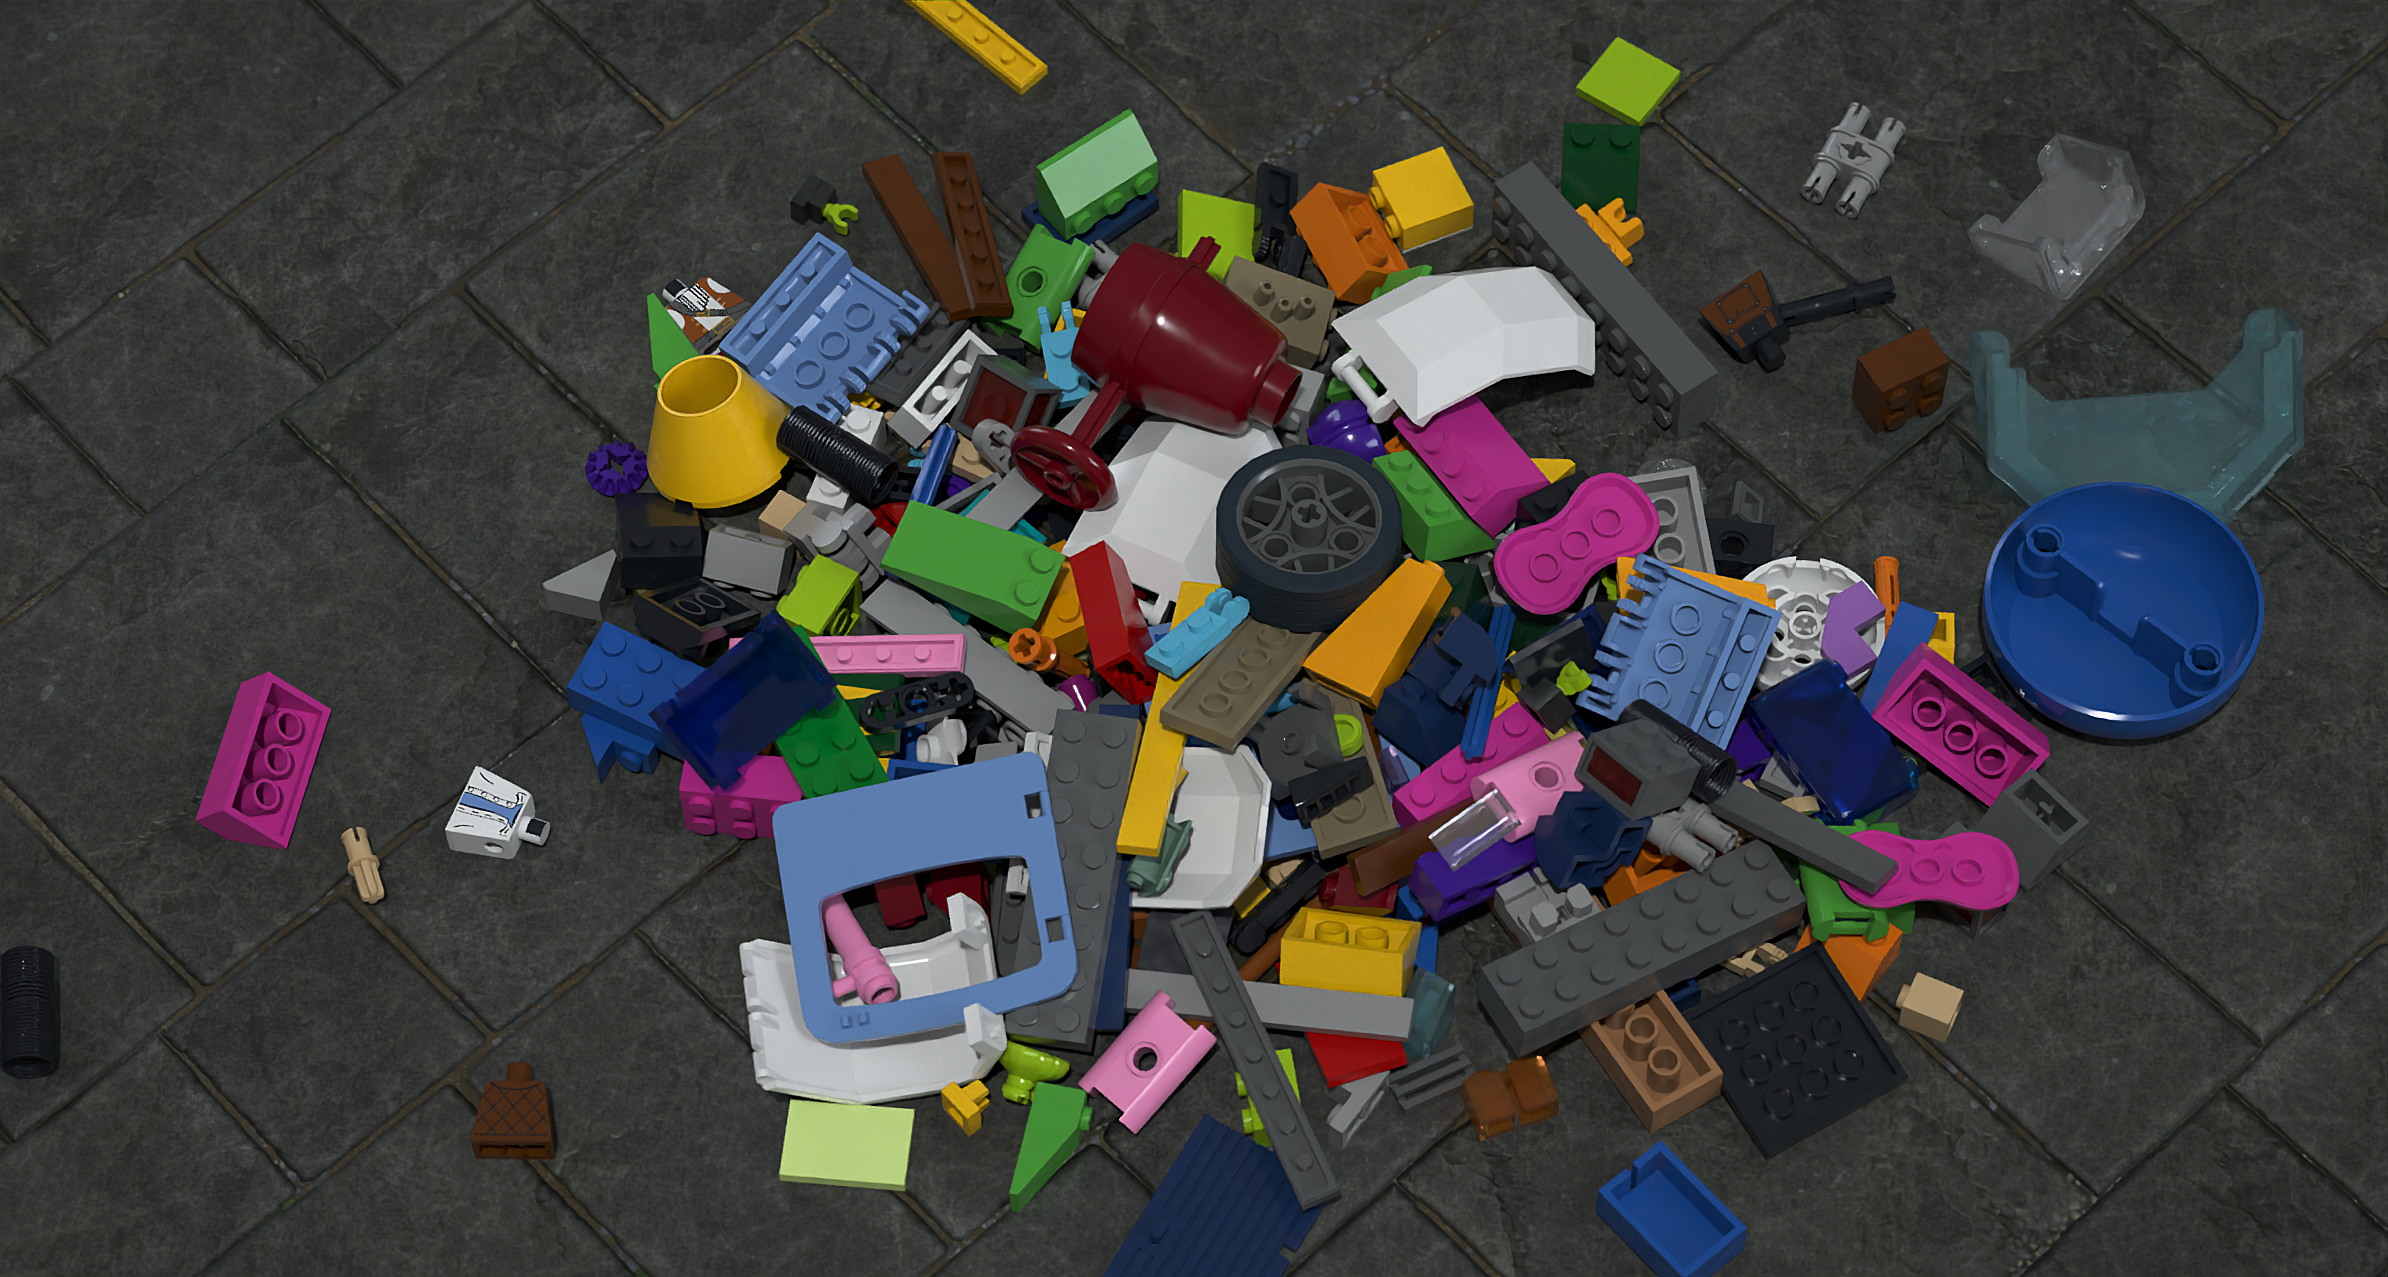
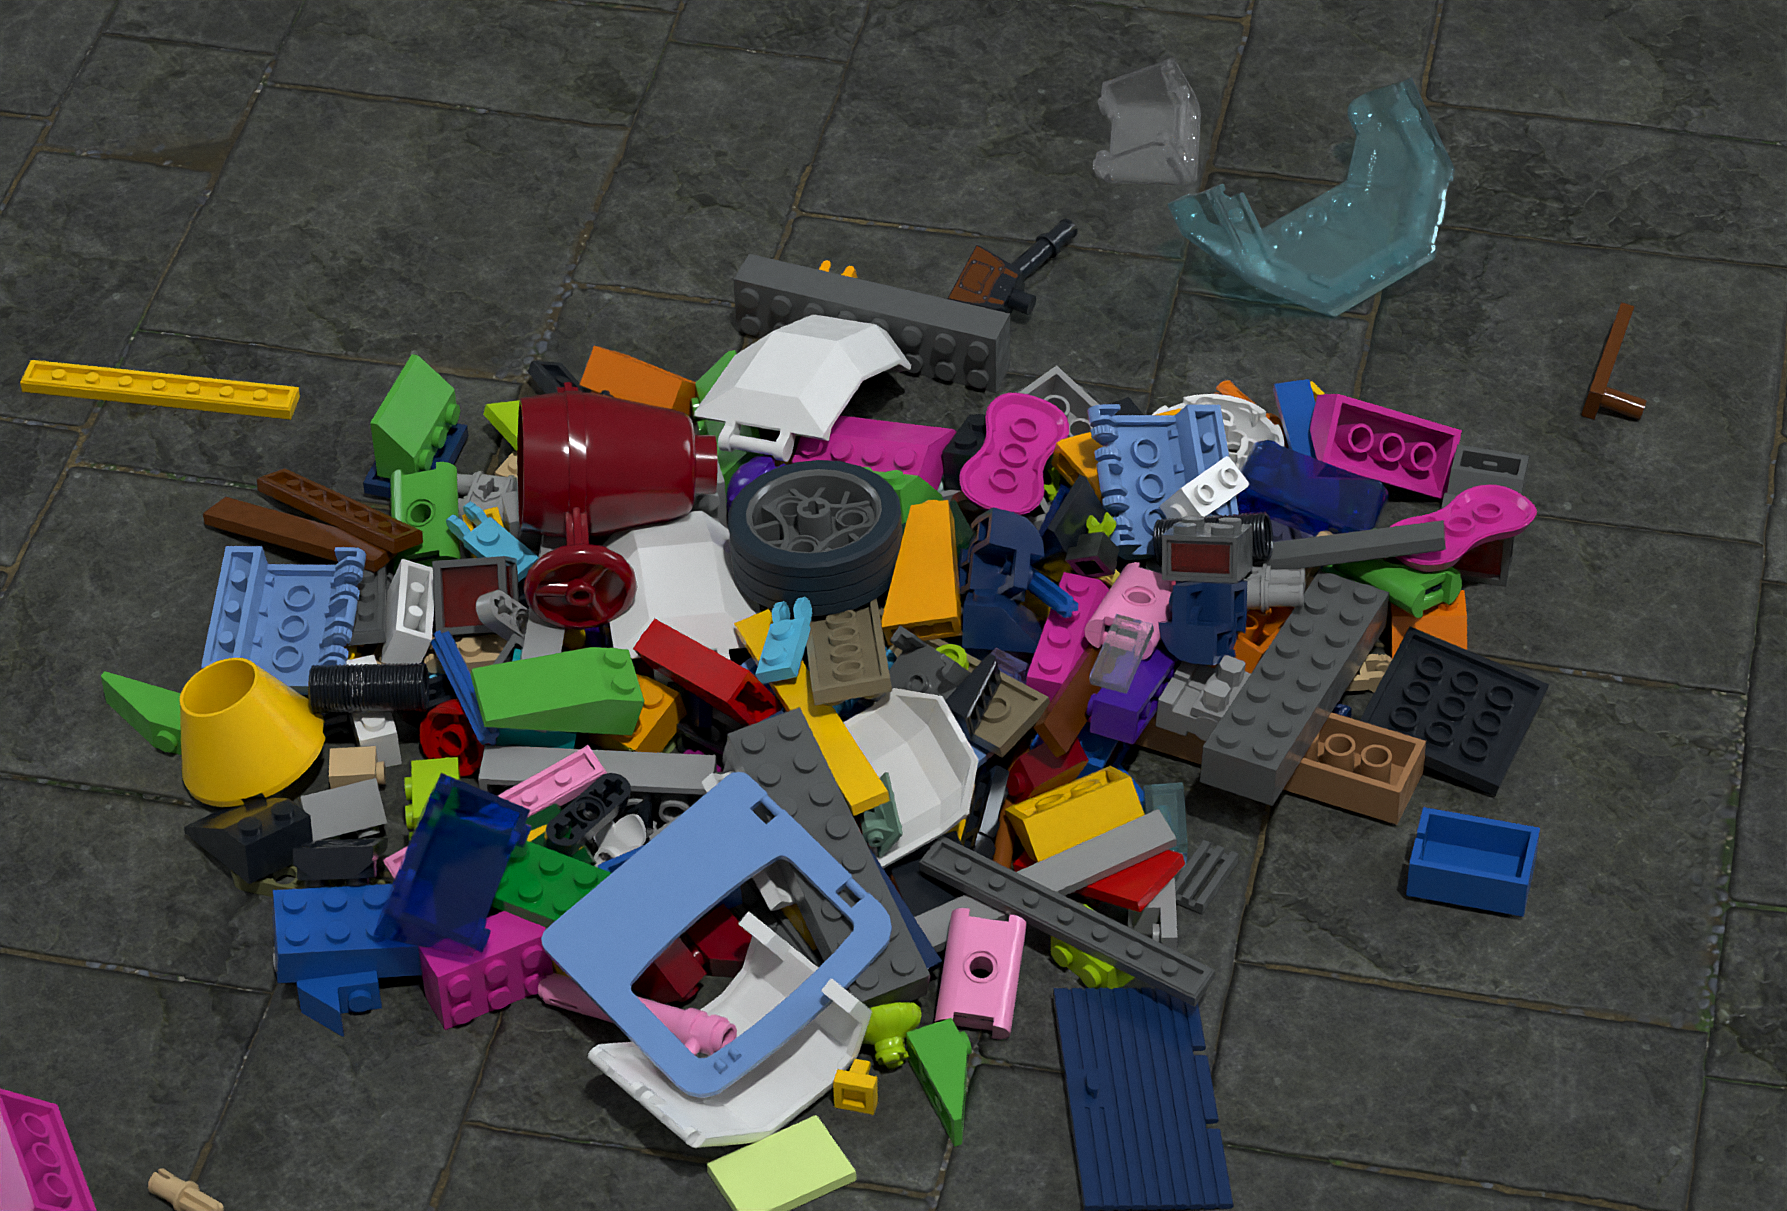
camera: 35 degrees left, 15 degrees down
(494, 818) = (277, 1100): white torso -> none
(585, 589) = (214, 904): light grey slope -> none
(610, 481) = (172, 822): dark purple gear -> none
(704, 312) = (161, 663): torso -> none
(817, 202) = (185, 557): pearl dark grey piece -> none
(841, 539) = (417, 739): light grey hips -> none
(1043, 655) = (663, 737): orange pin -> none
(1421, 200) = (674, 332): yellow piece -> none
(1498, 1096) = (1276, 845): clear orange piece -> none
(1600, 165) = (790, 239): dark green slope -> none
(1627, 82) = (759, 199): lime tile -> none
(1710, 696) = (1206, 491): none -> white bracket
(1845, 617) = (1240, 419): medium lavender tile -> none
(1853, 160) = (969, 168): light grey pin -> none
(1900, 381) = (1135, 270): reddish brown brick -> none
(1929, 1006) = (1521, 635): tan brick -> none
(2122, 610) = (1426, 324): blue cylinder -> none
(2243, 781) = (1605, 396): none -> reddish brown piece

